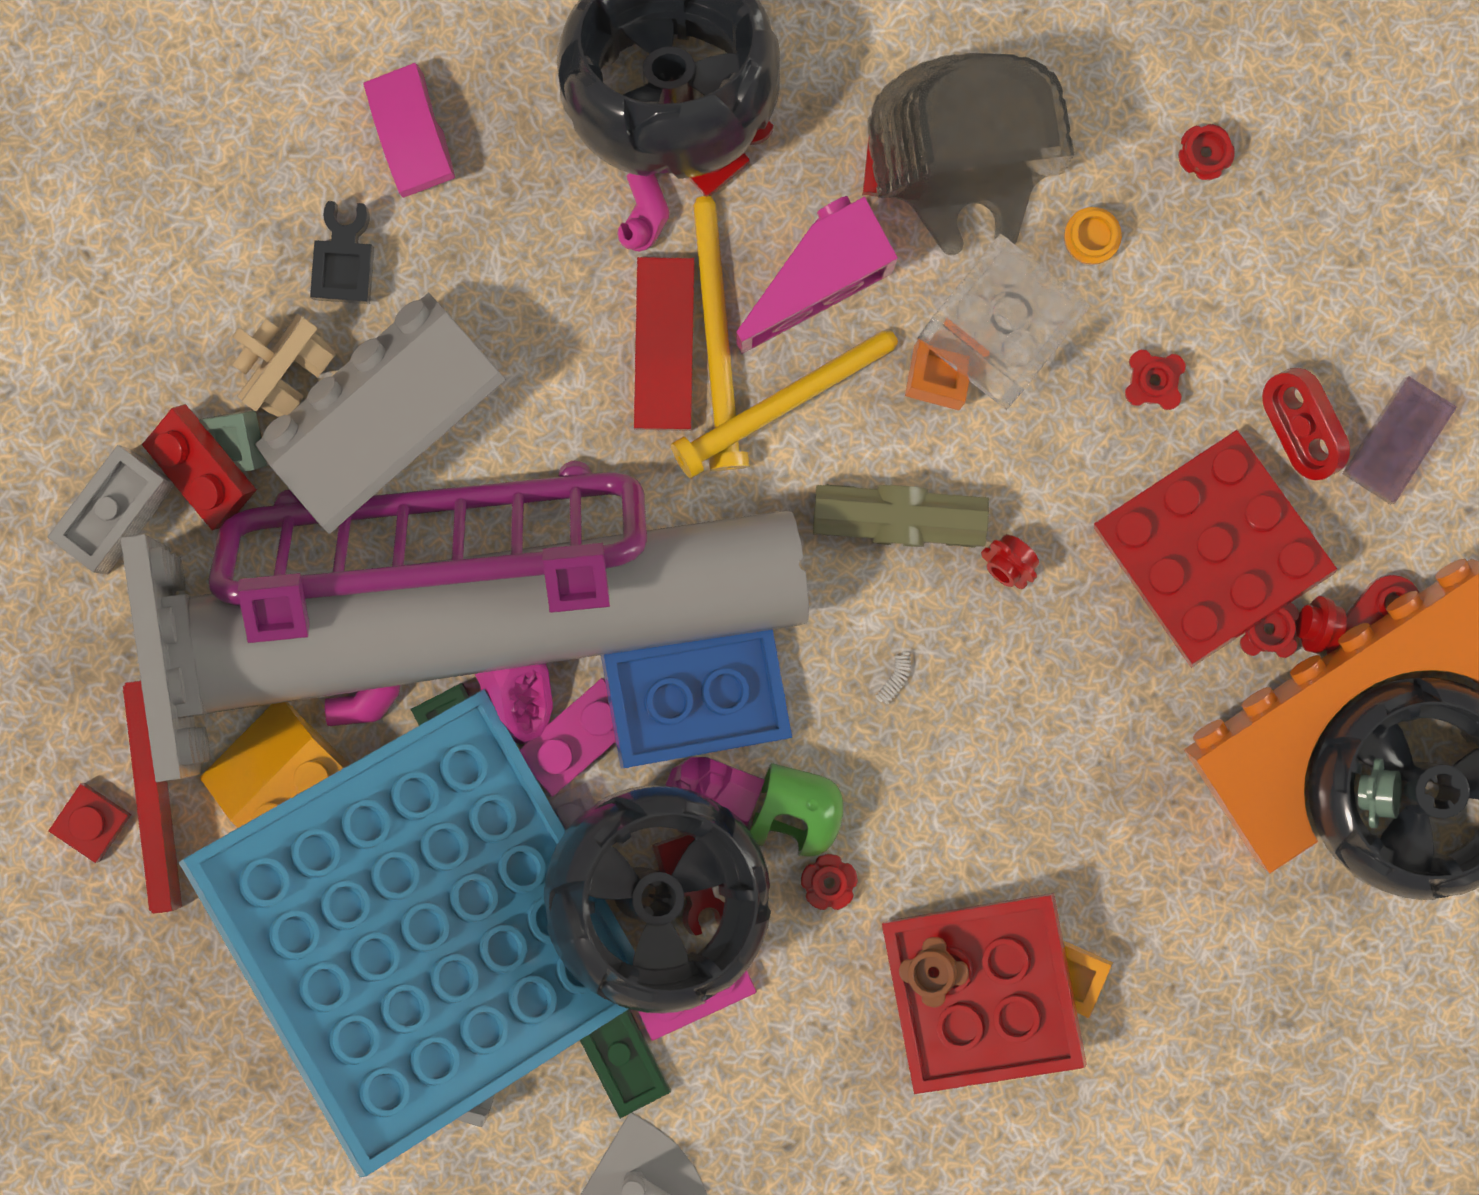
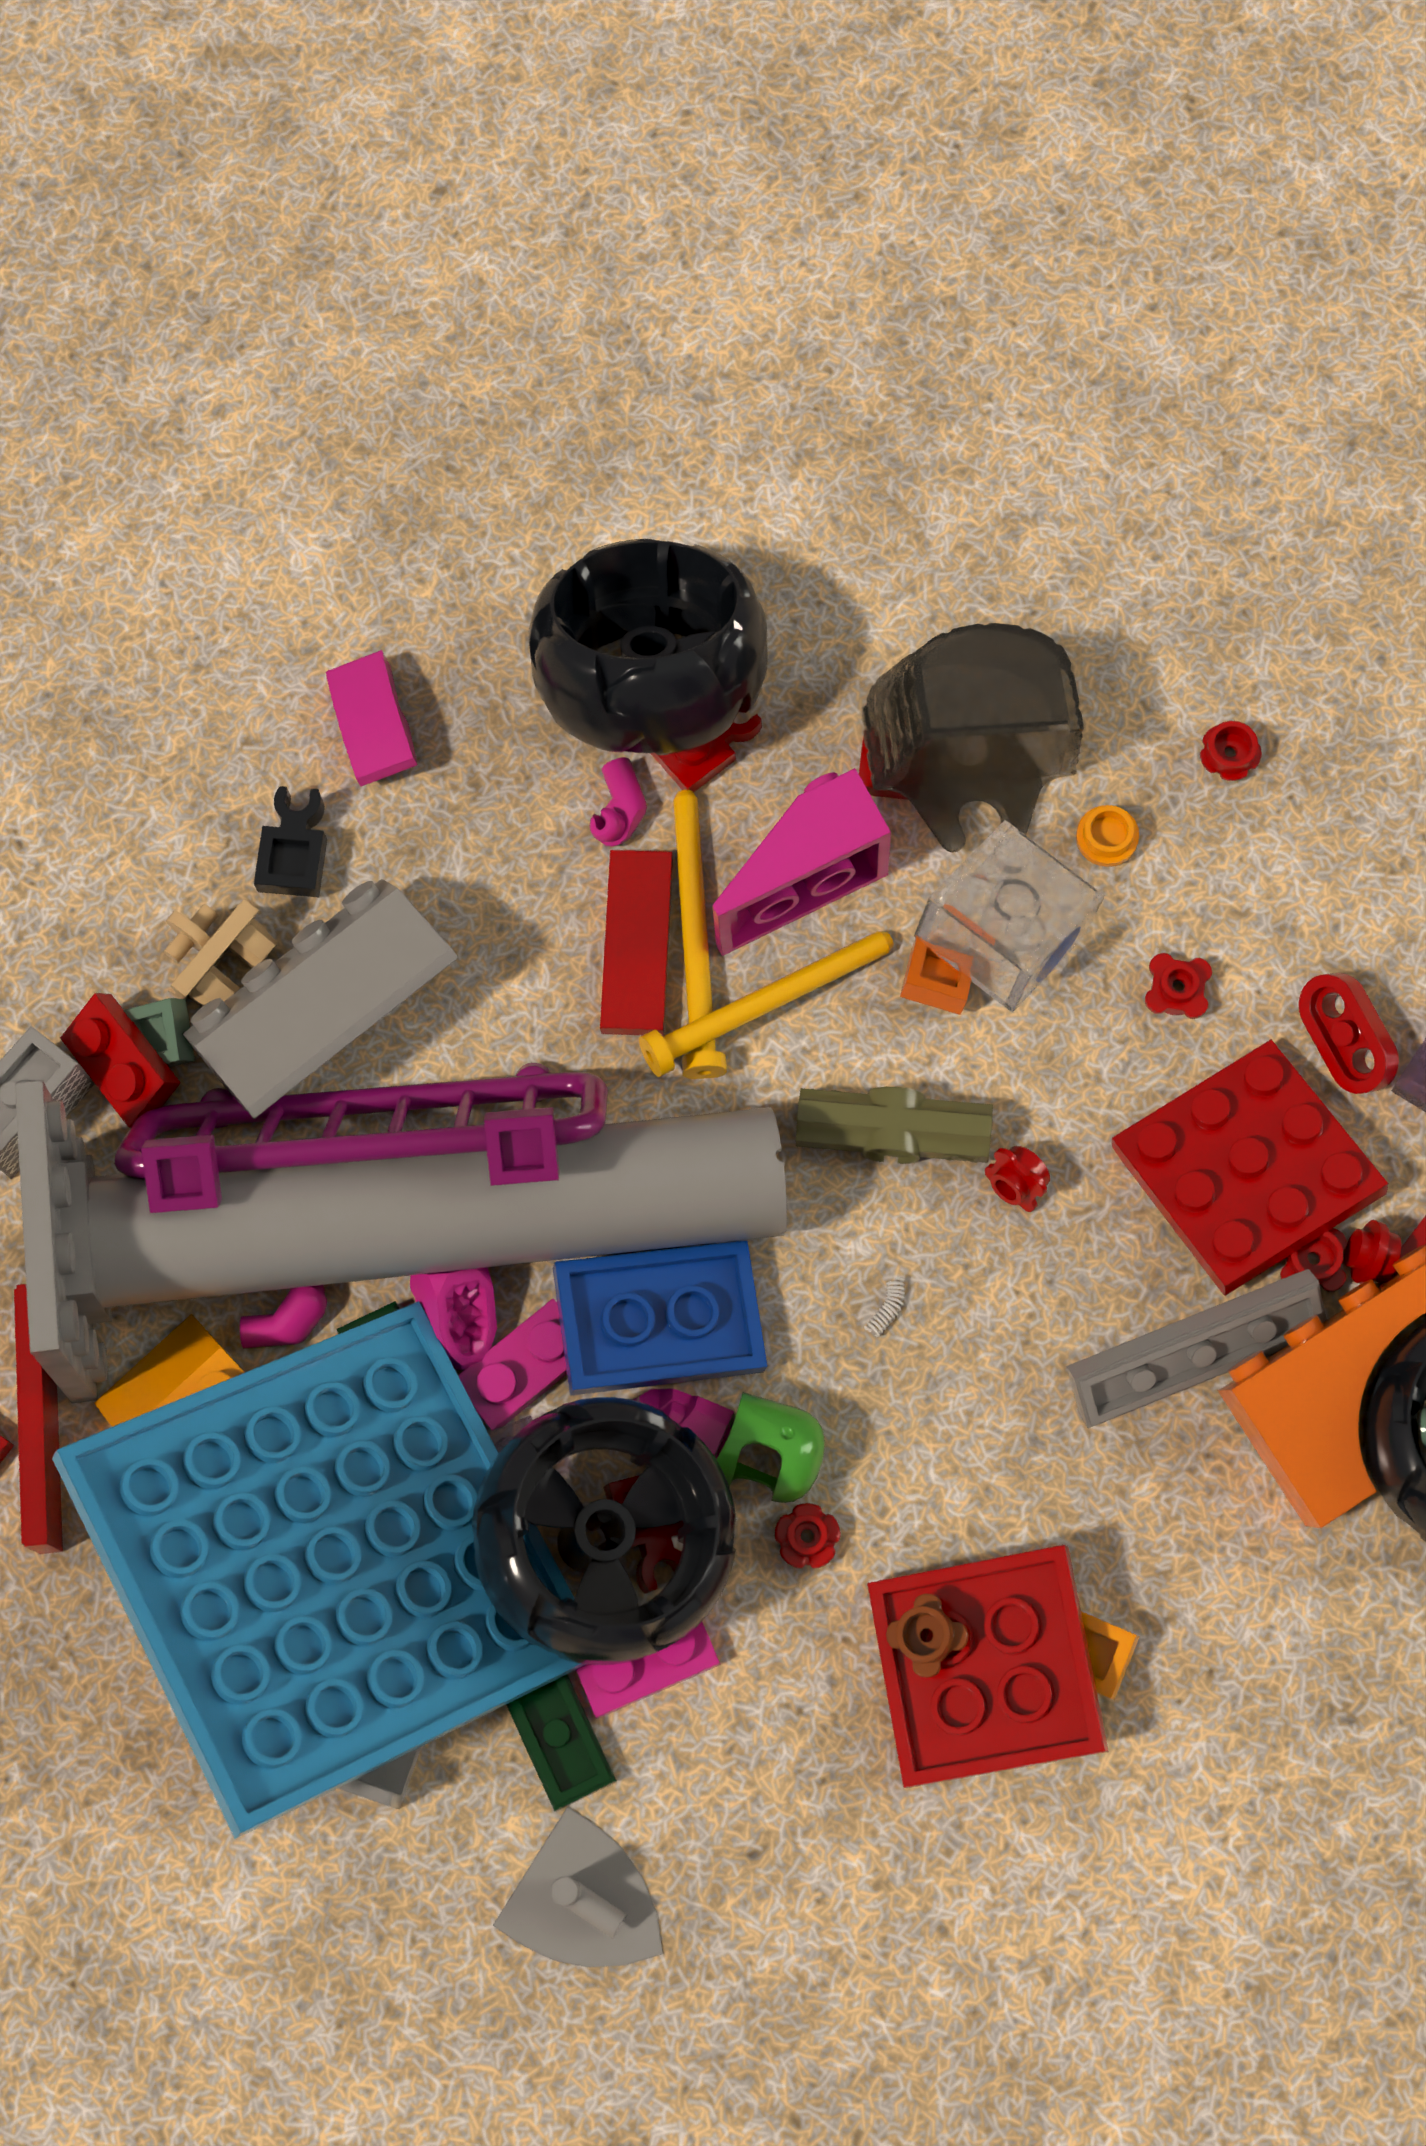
camera: 10 degrees right, 15 degrees down
(1164, 714) = (1192, 1349): none -> light grey tile

